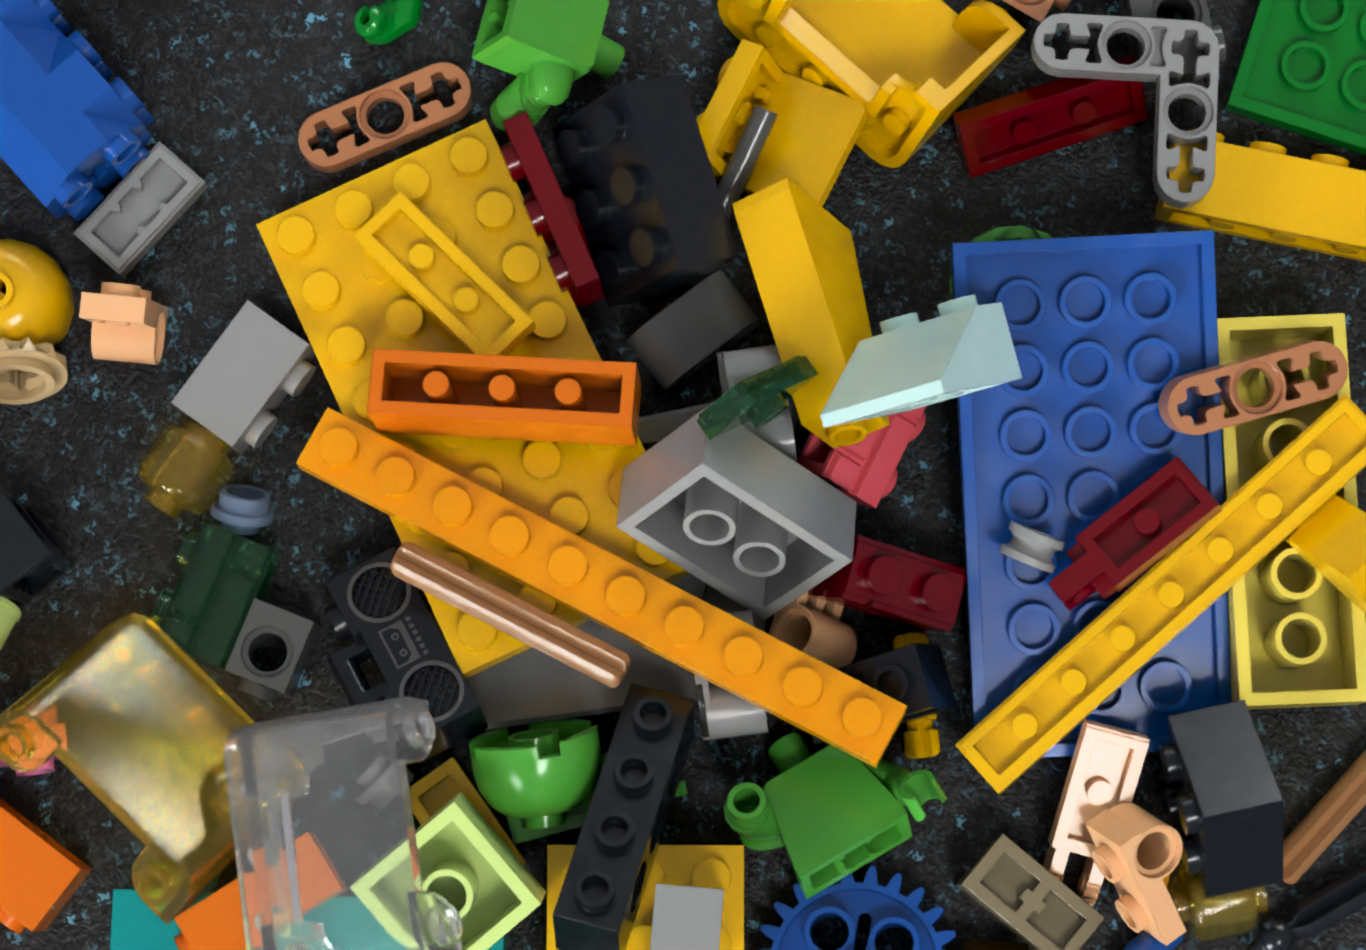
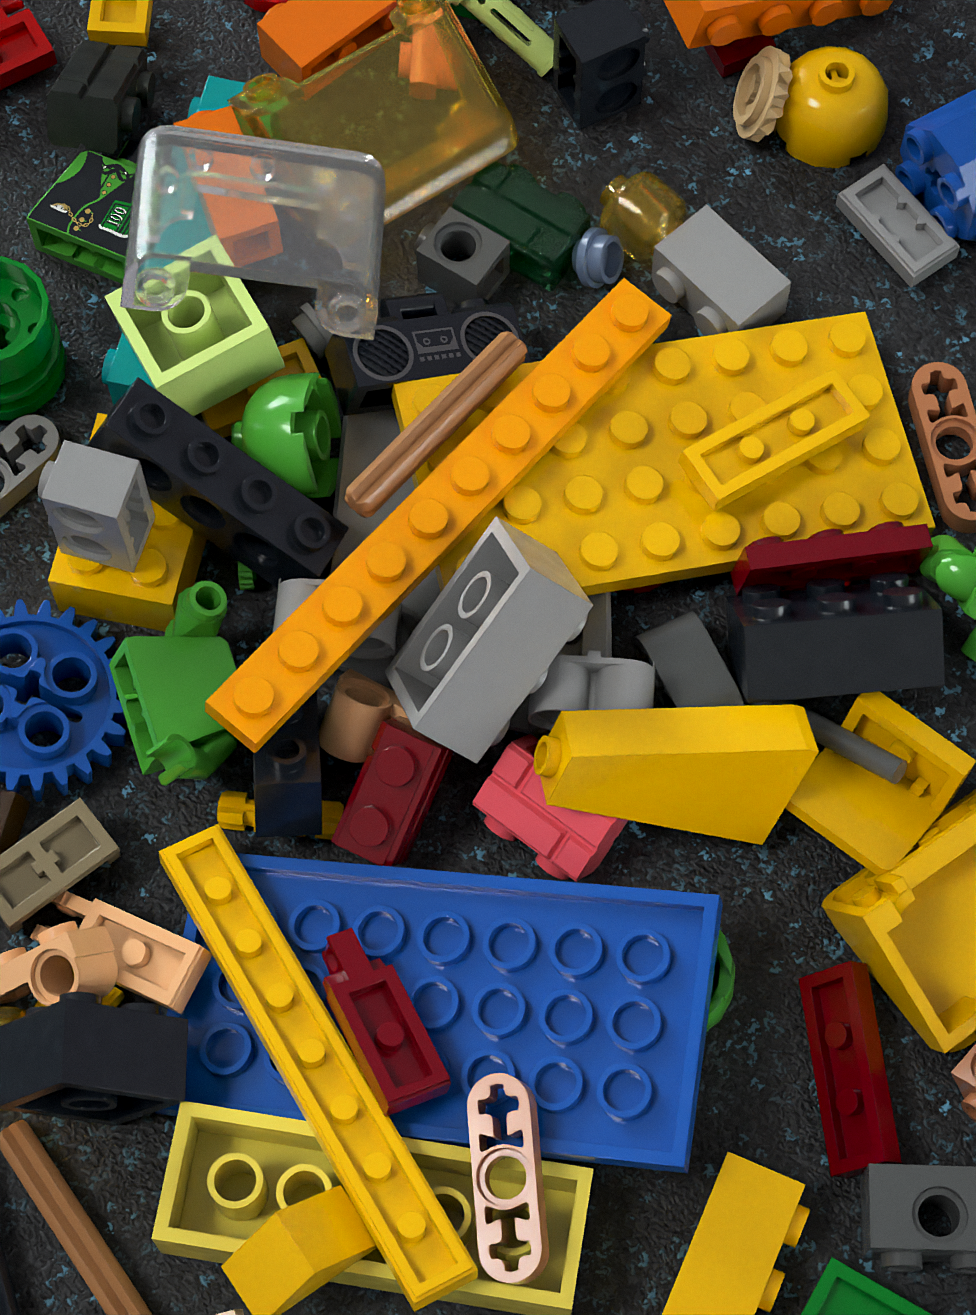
camera: 100 degrees right, 15 degrees down
(125, 323) = (791, 186): light nougat plate -> none
(504, 397) = (645, 454): orange brick -> none
(757, 397) = (590, 652): clear green plate -> none
(924, 362) = (594, 824): light aqua slope -> none
(1031, 547) = (392, 920): light grey bush -> none
(1156, 65) = (883, 1172): light grey beam -> none

